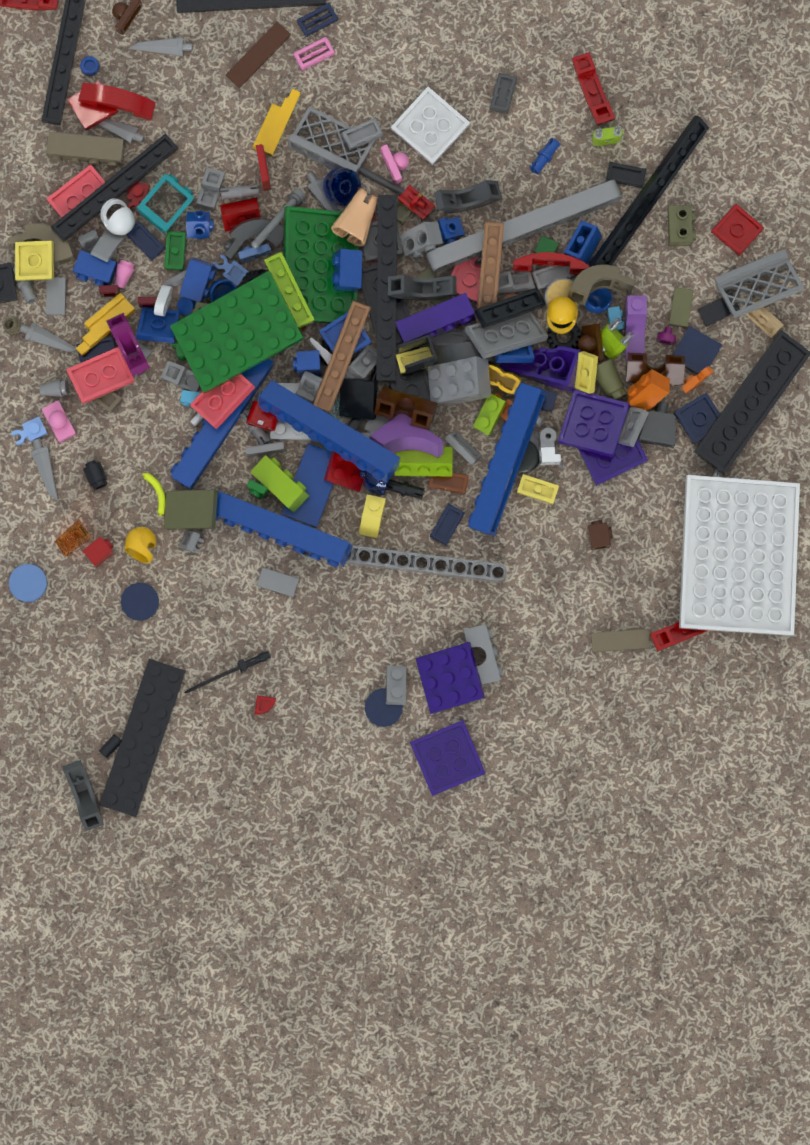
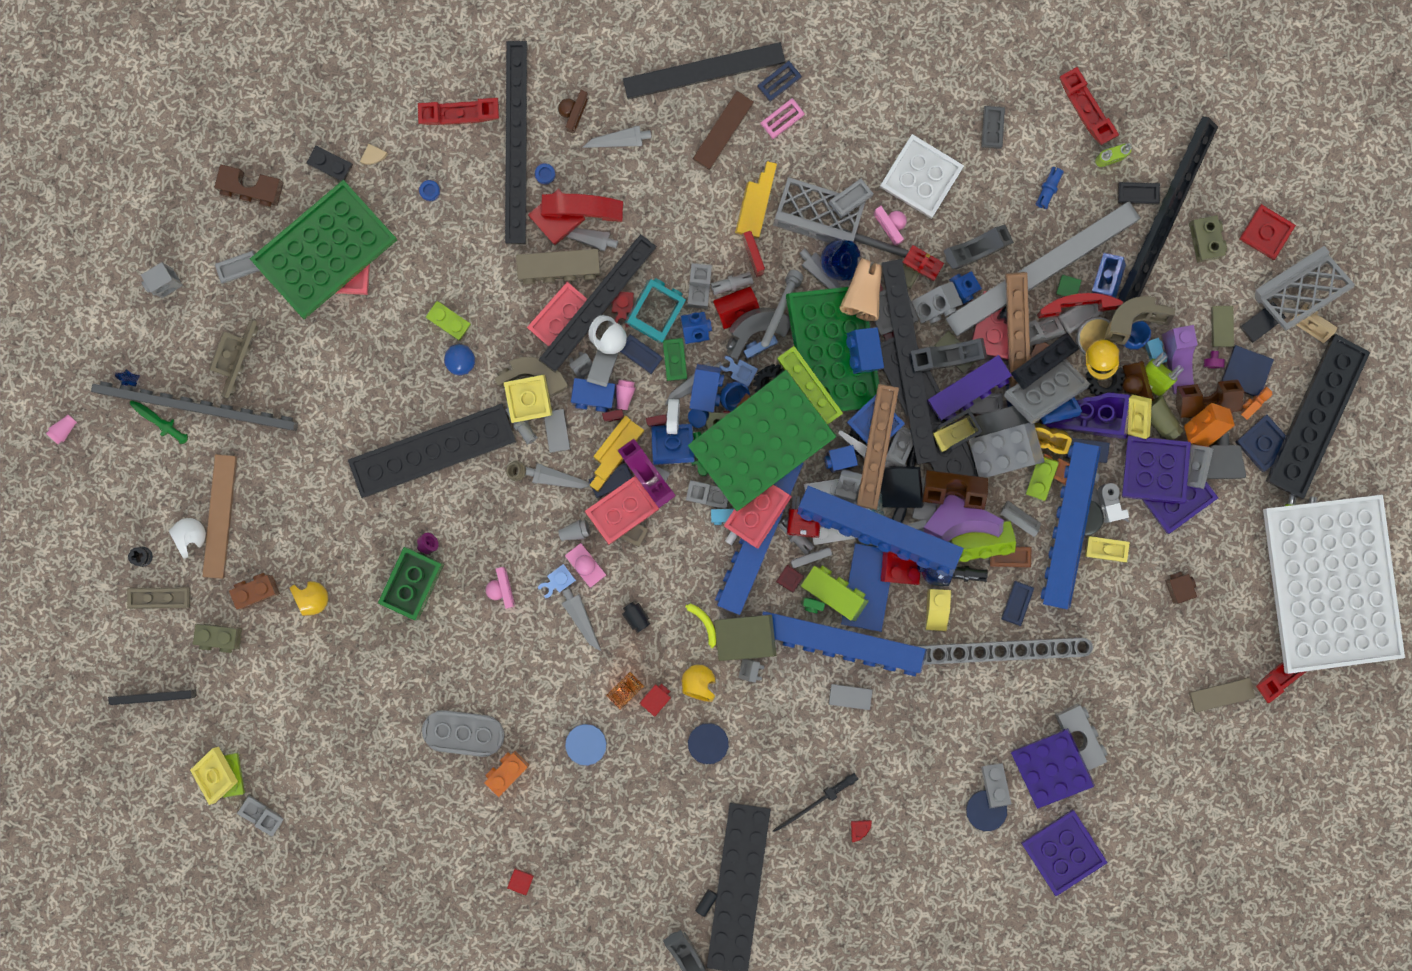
camera: 15 degrees left, 5 degrees up
(242, 466) = (790, 578): none -> dark red tile

